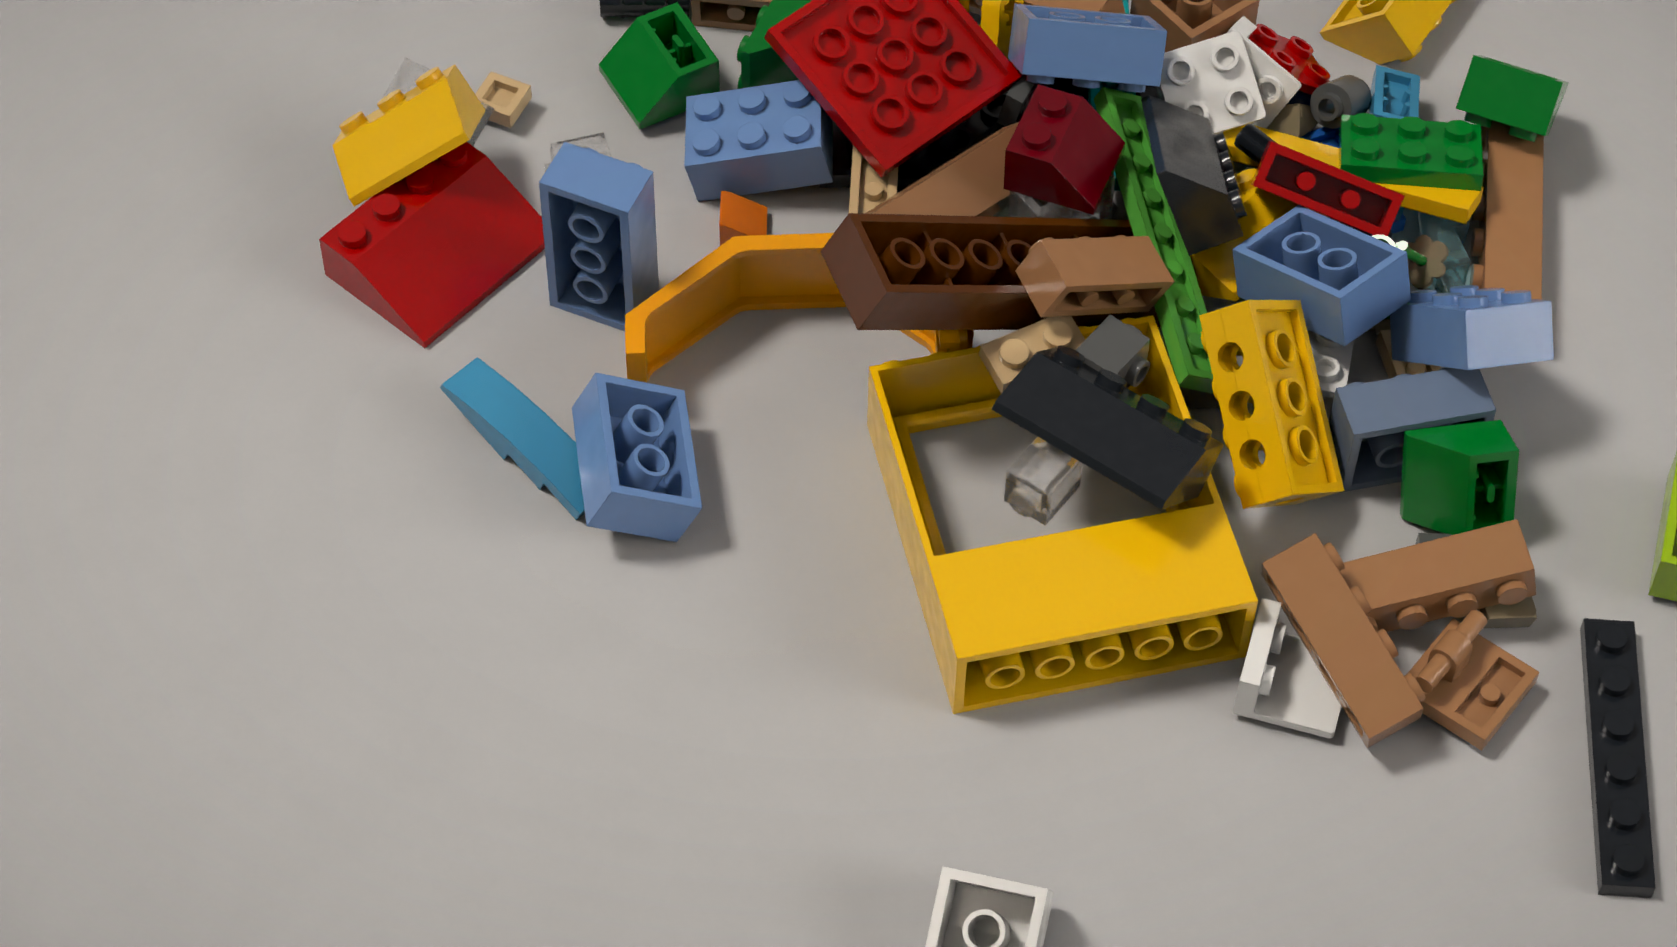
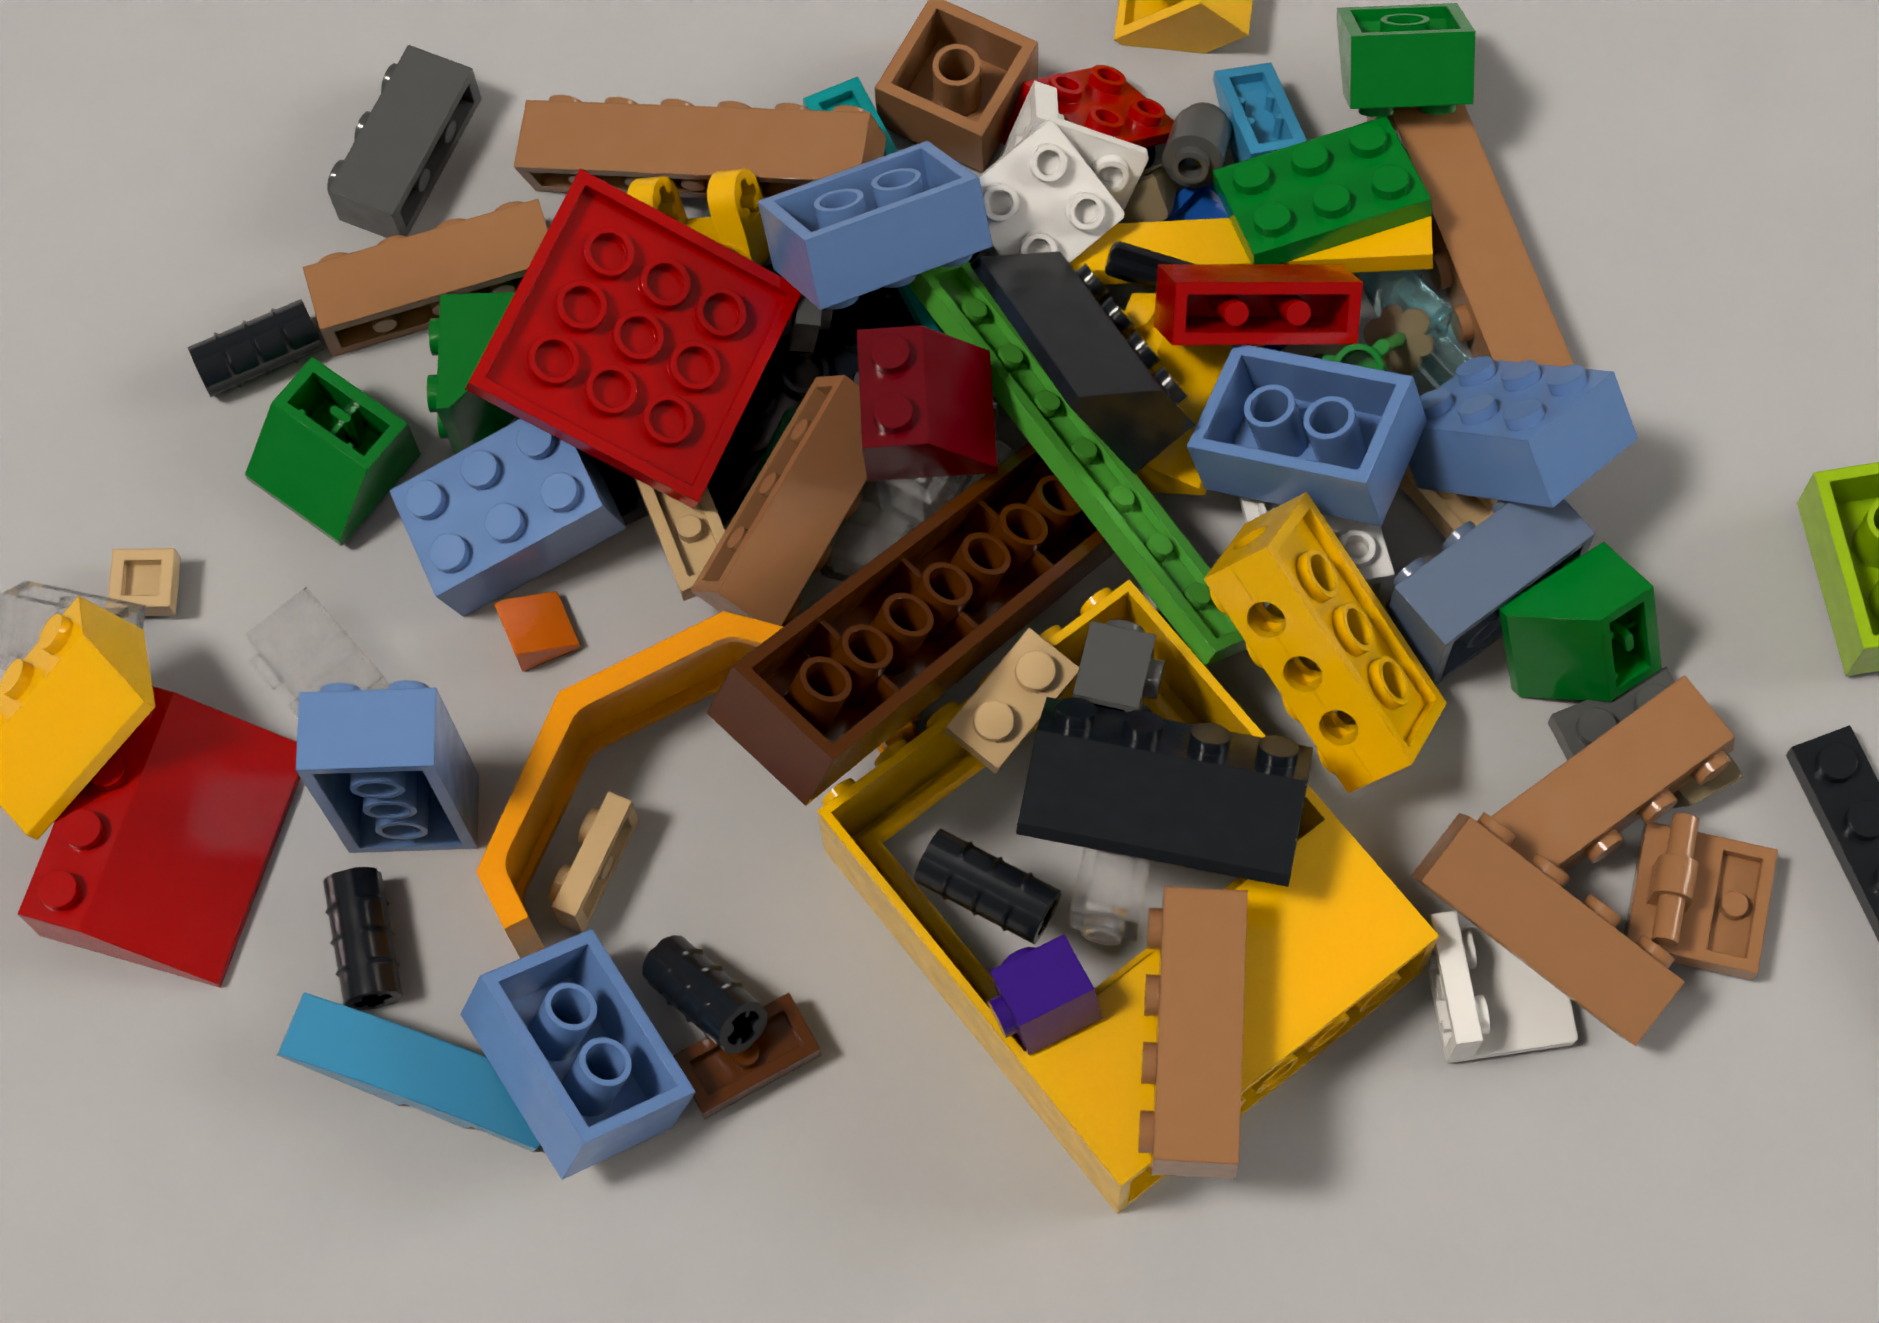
camera: 20 degrees left, 15 degrees up
(533, 346) = (362, 938): none -> black axle
(711, 362) = (603, 840): none -> tan plate
(739, 461) = (704, 994): none -> black axle
(749, 515) = (727, 1078): none -> reddish brown plate
(959, 447) = (987, 886): none -> black axle
(962, 520) = (1043, 995): none -> dark purple brick
(1055, 581) = (1197, 1034): none -> medium nougat brick
(1094, 275) = (1044, 571): medium nougat brick -> none

